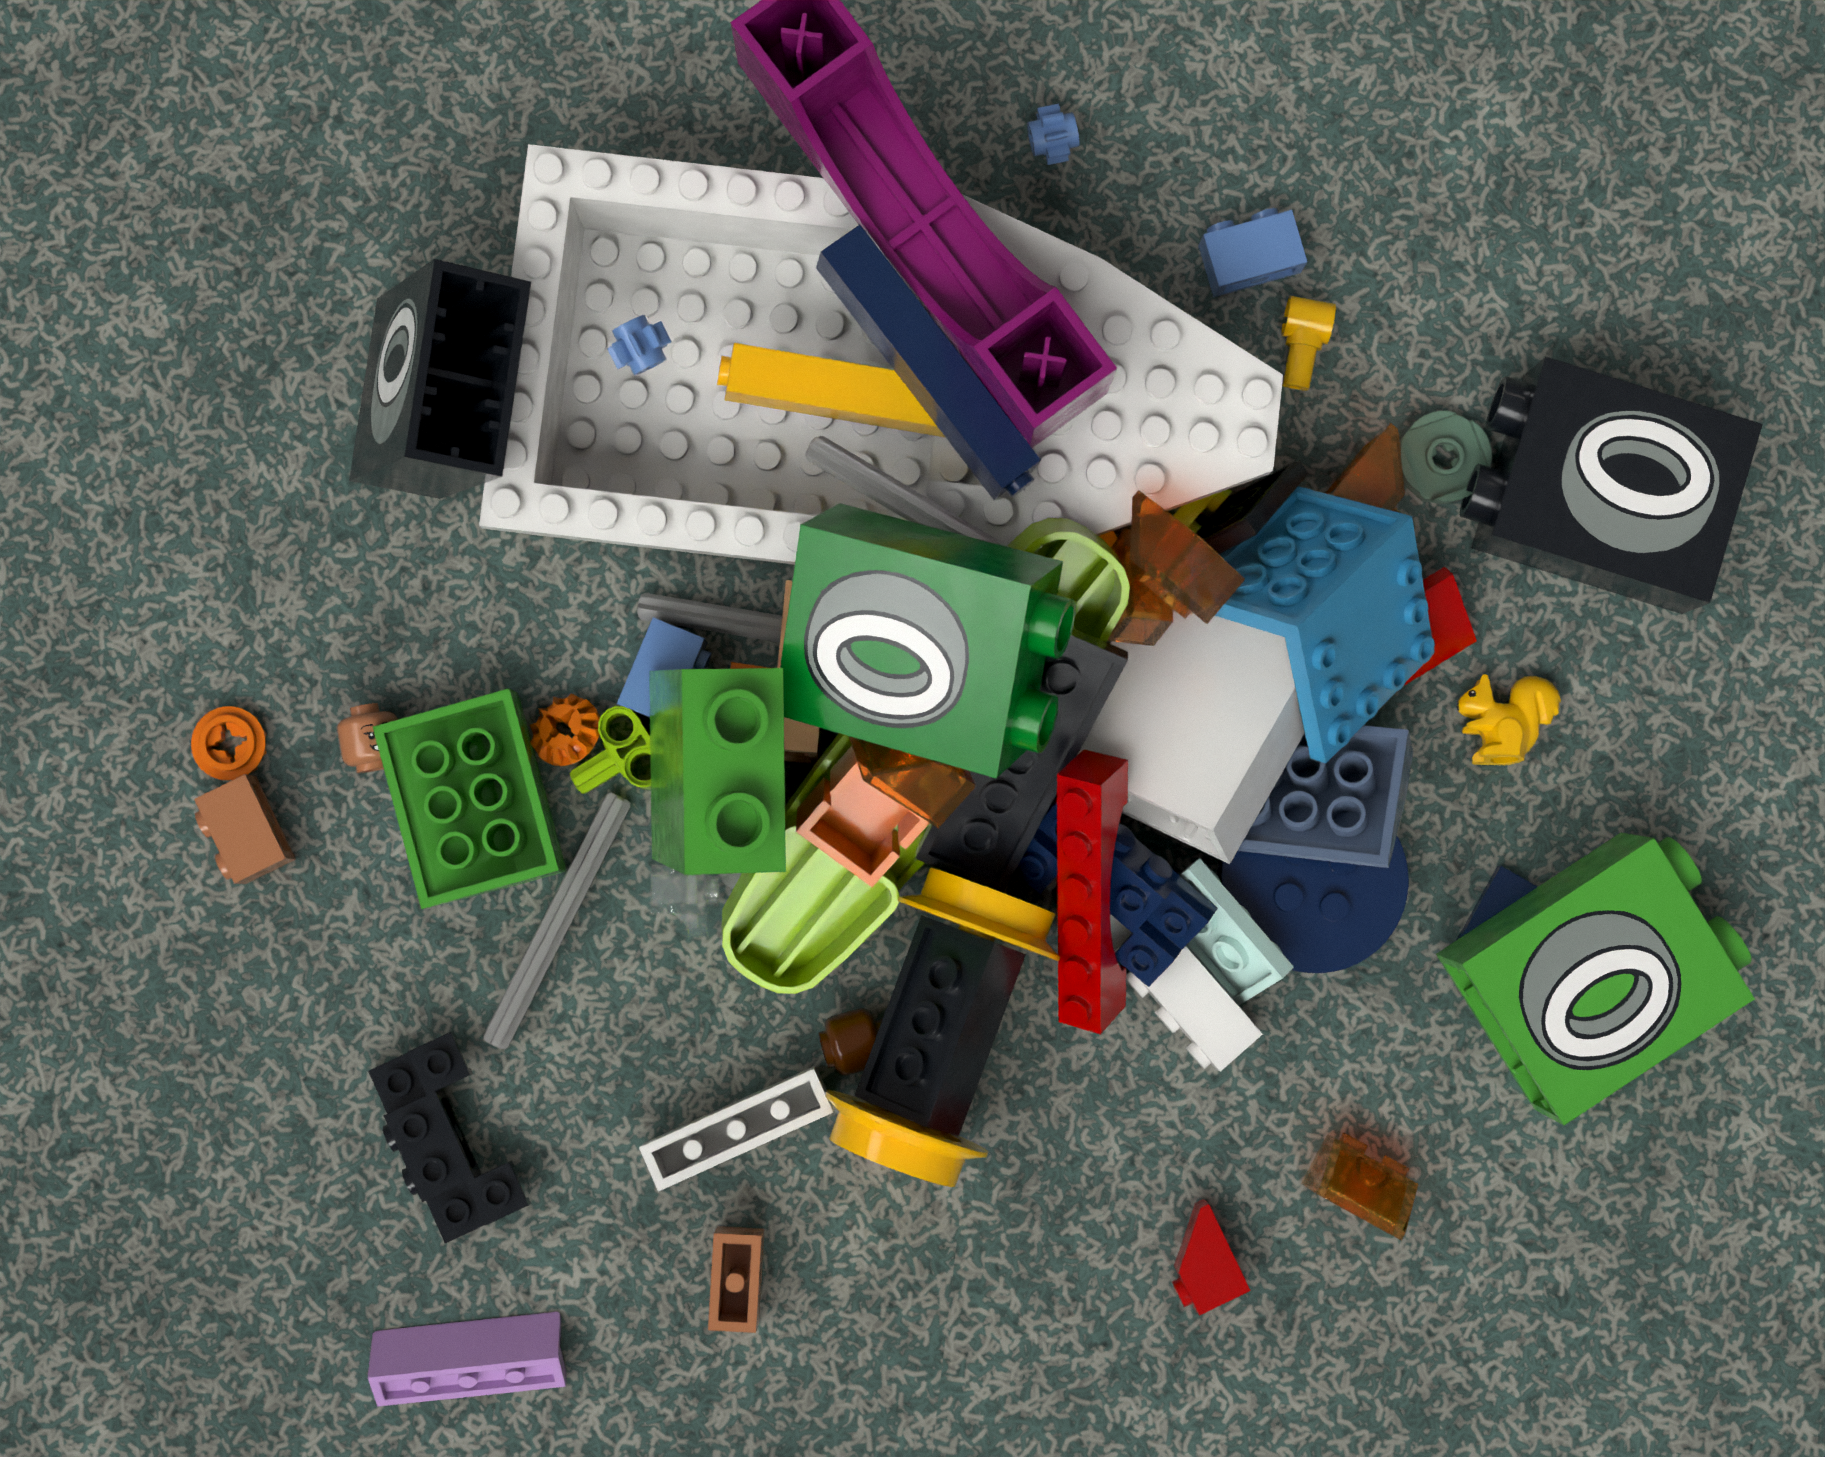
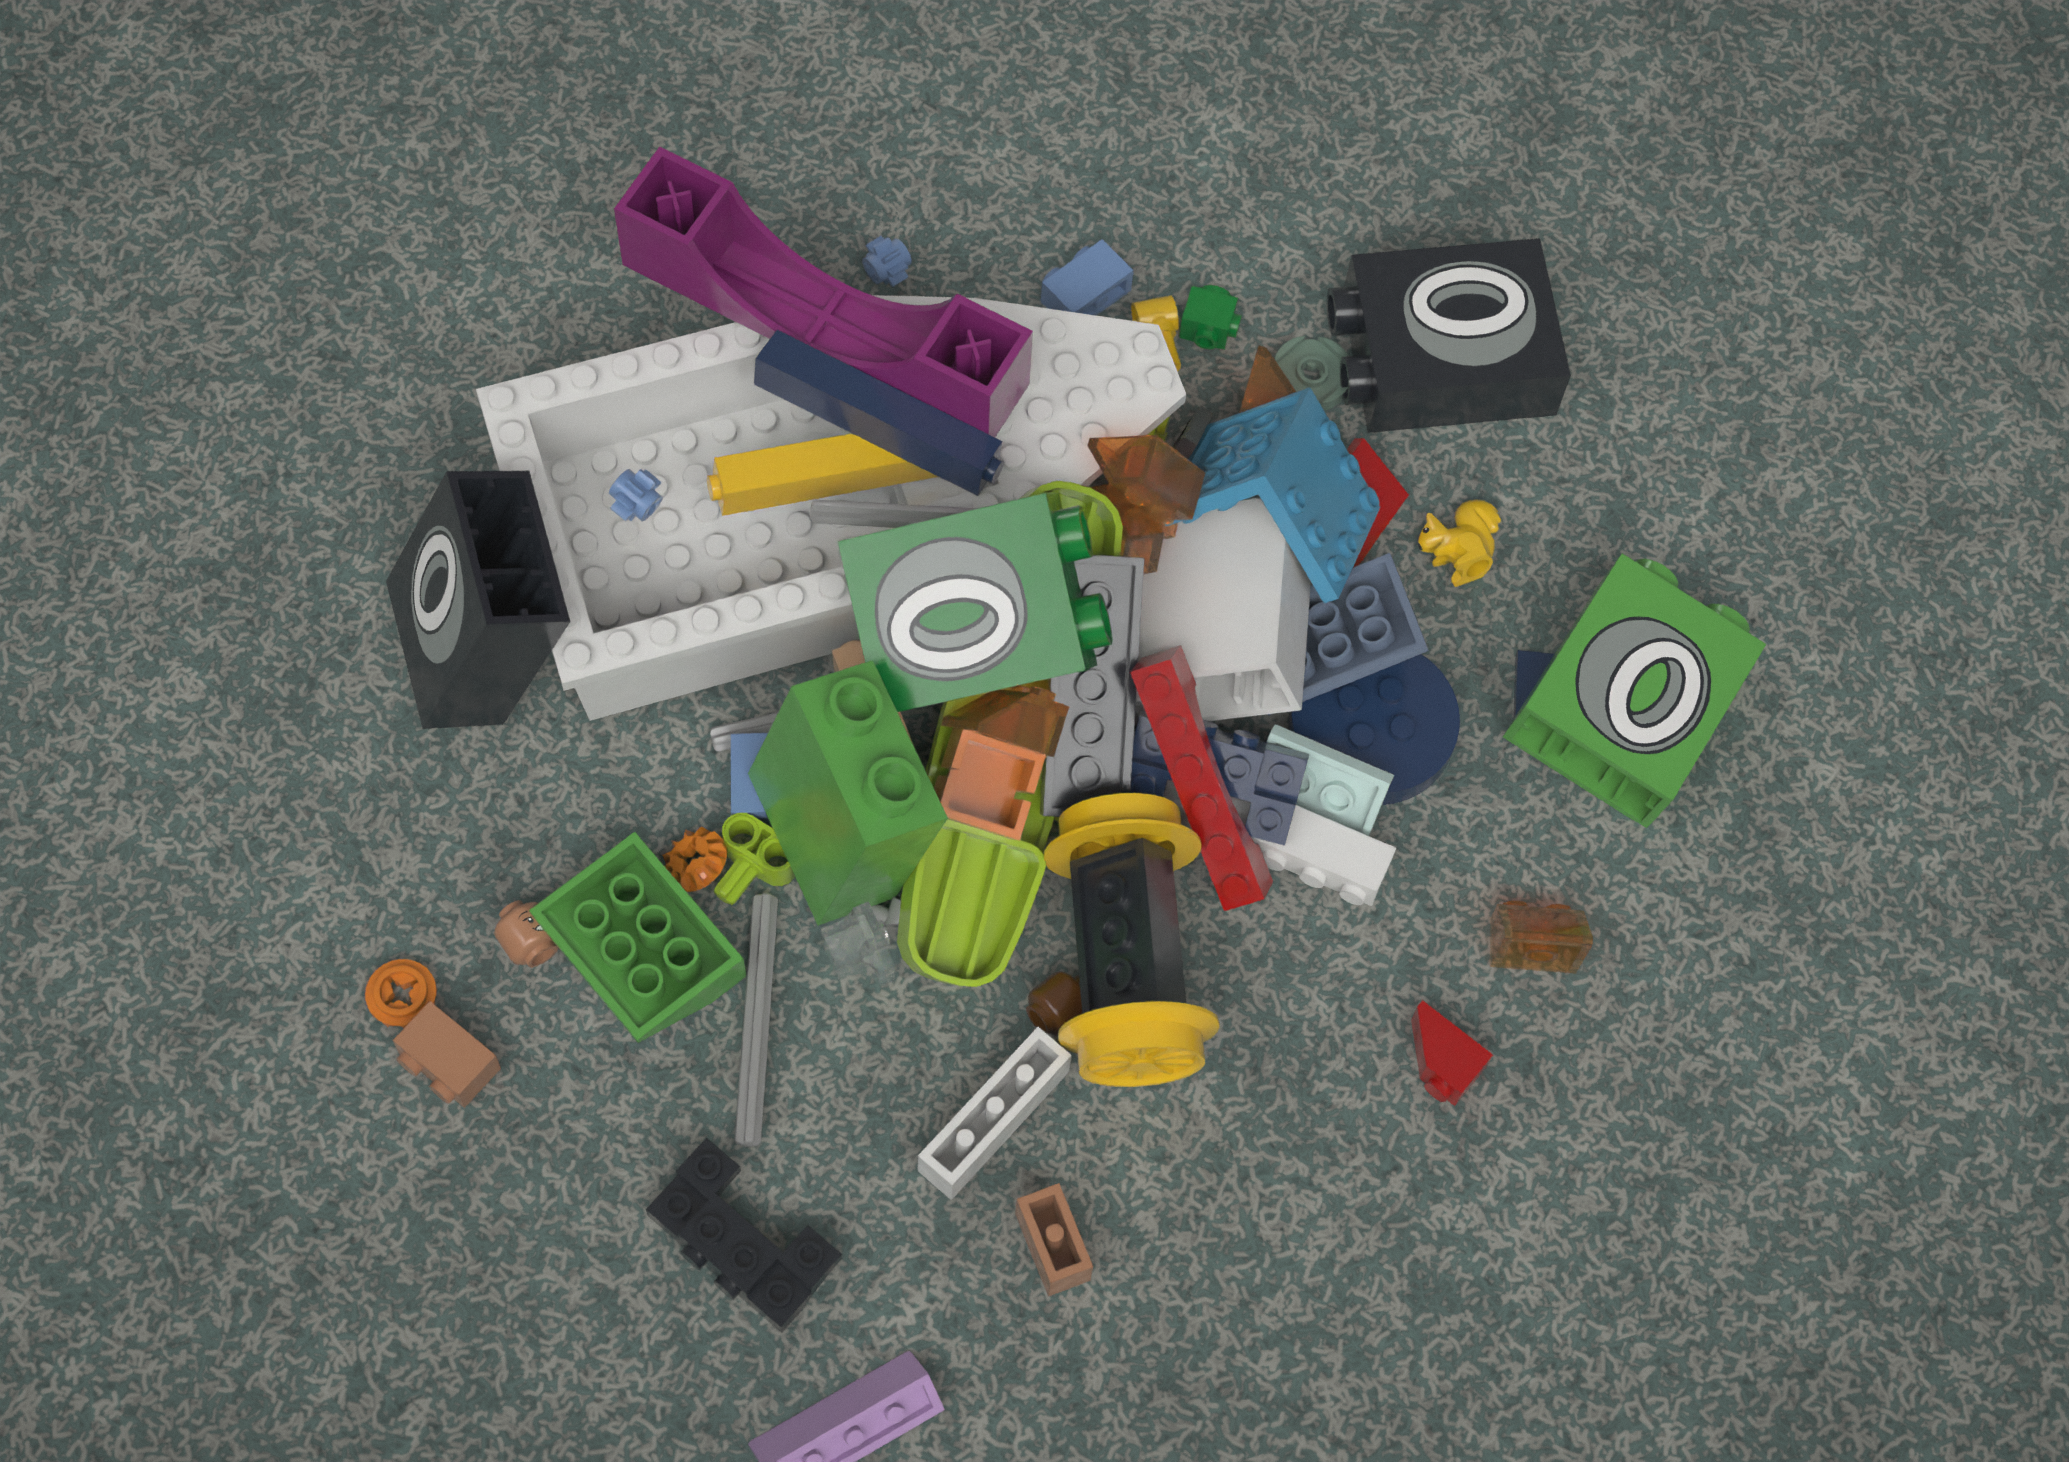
camera: 25 degrees left, 20 degrees down
(1367, 347) = (1210, 316): none -> green brick

